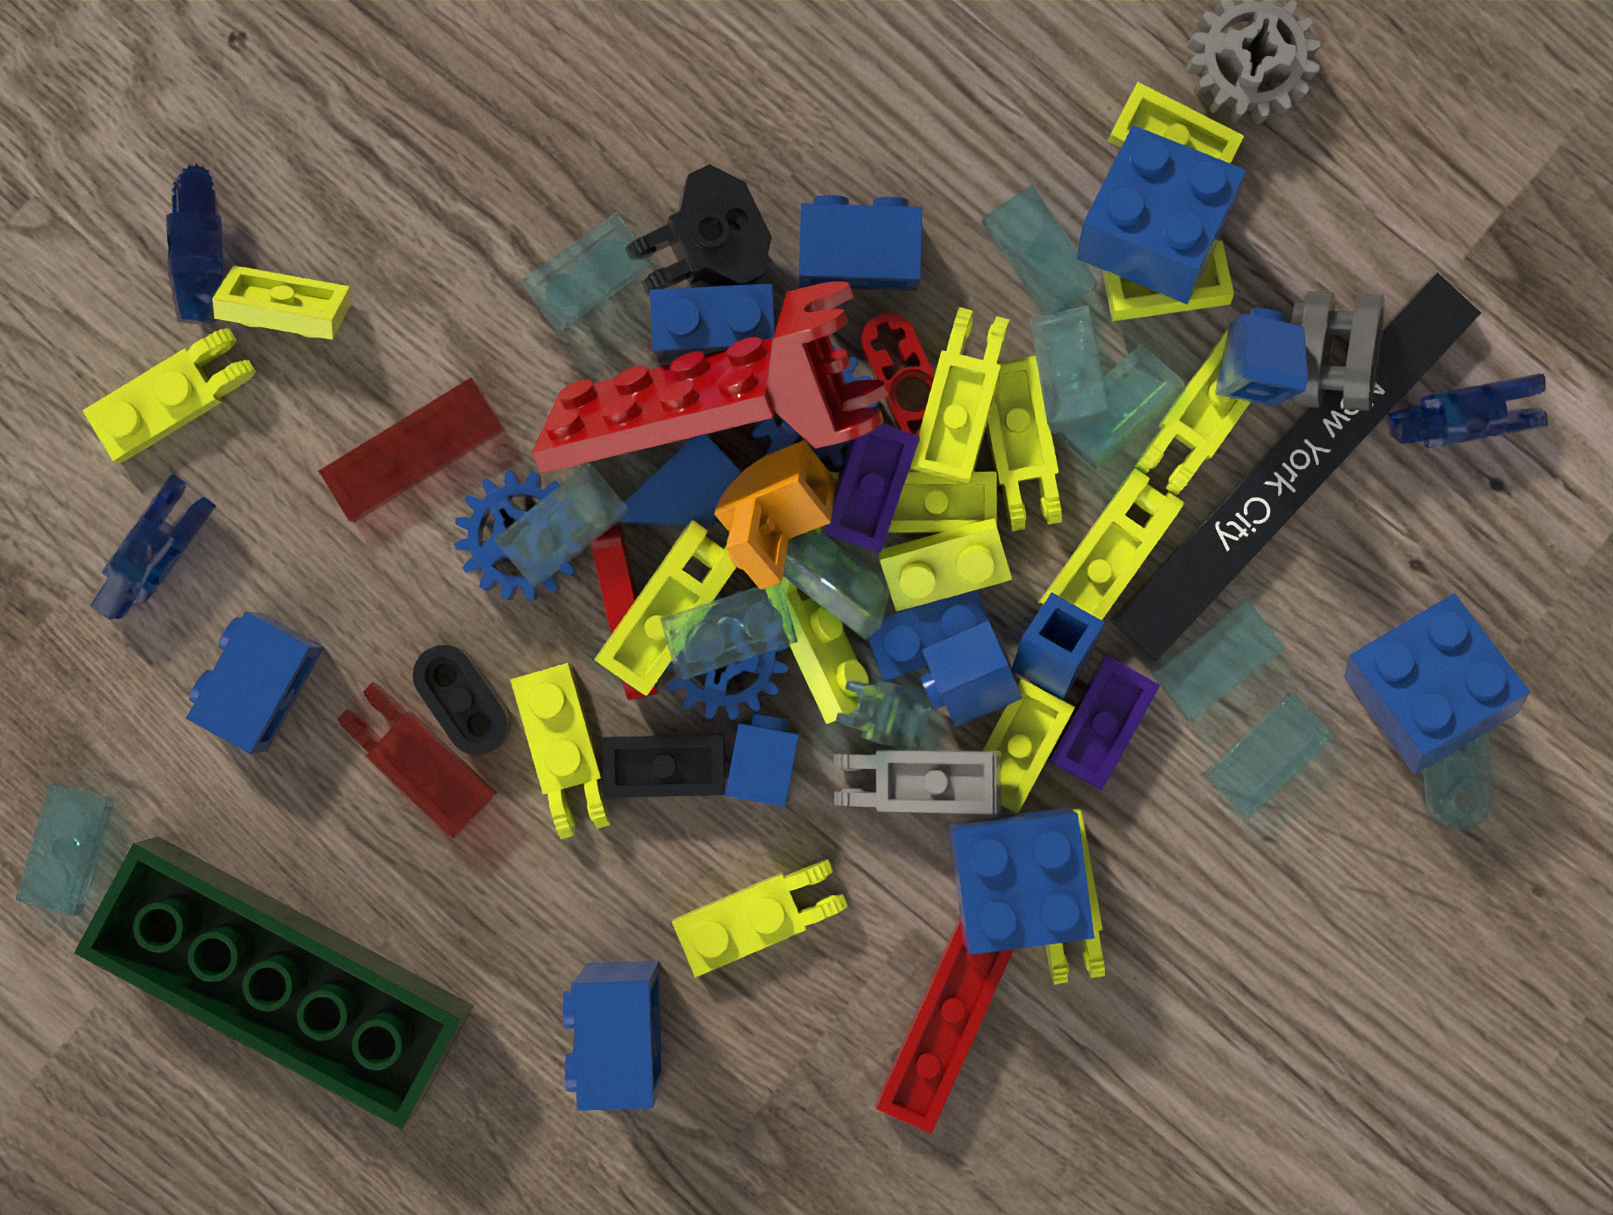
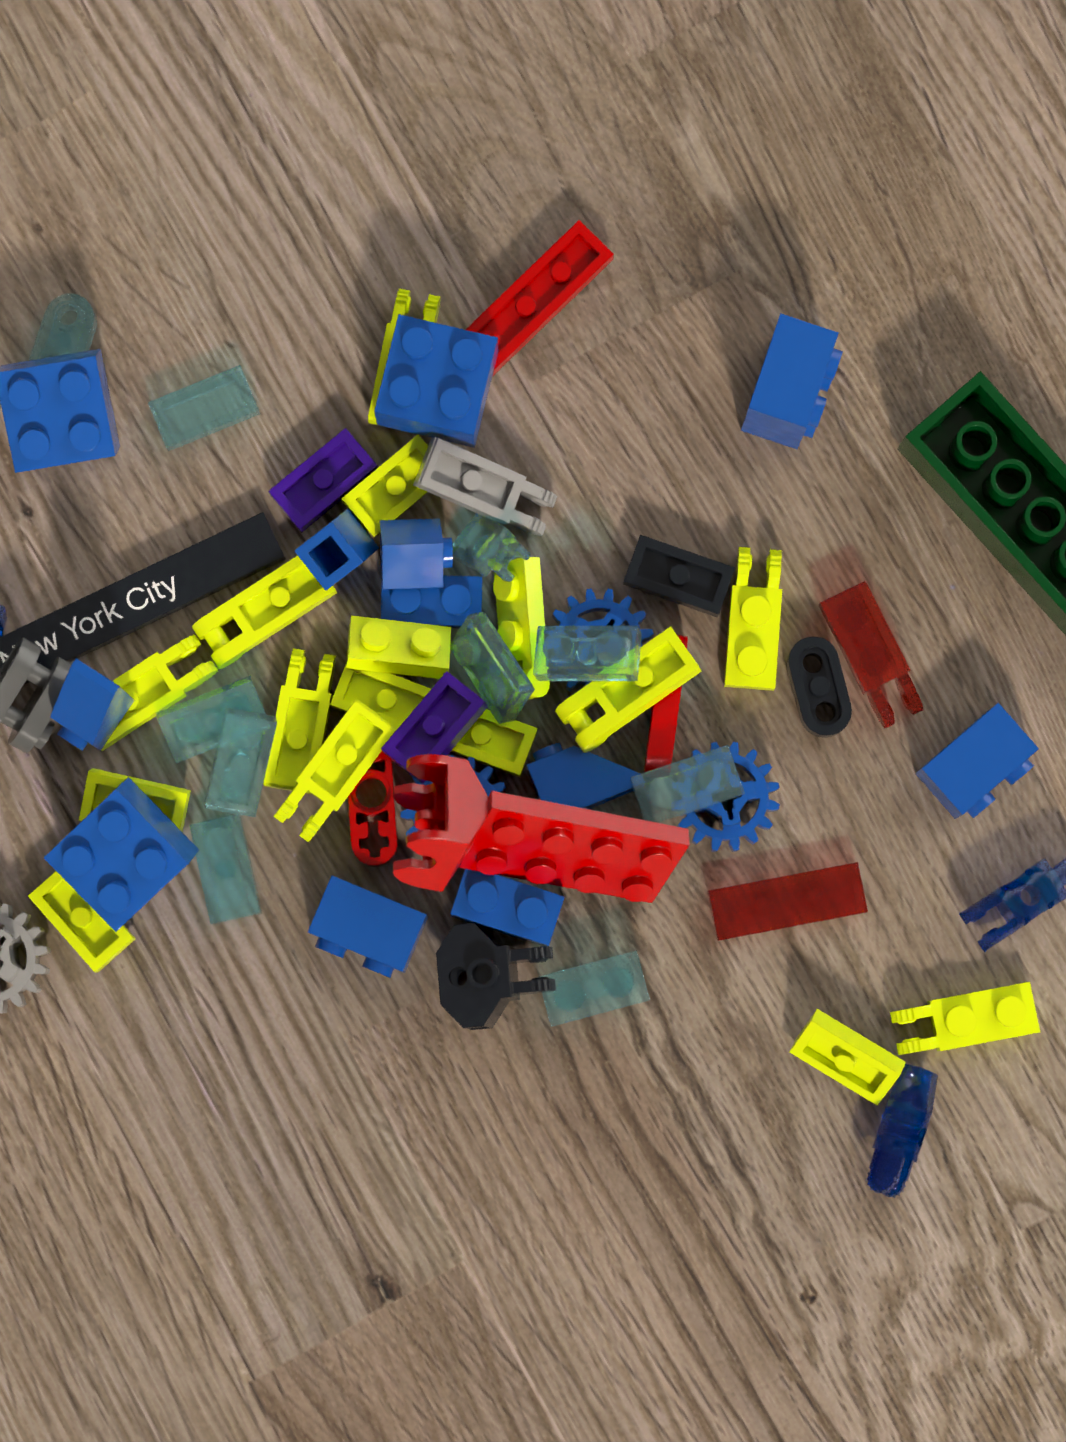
camera: 160 degrees left, 5 degrees down
(752, 919) = (653, 433): neon yellow hinge -> none
(762, 760) = (600, 549): blue brick -> none
(771, 504) = (518, 739): light orange brick -> none
(1218, 660) = (214, 495): clear light blue tile -> none

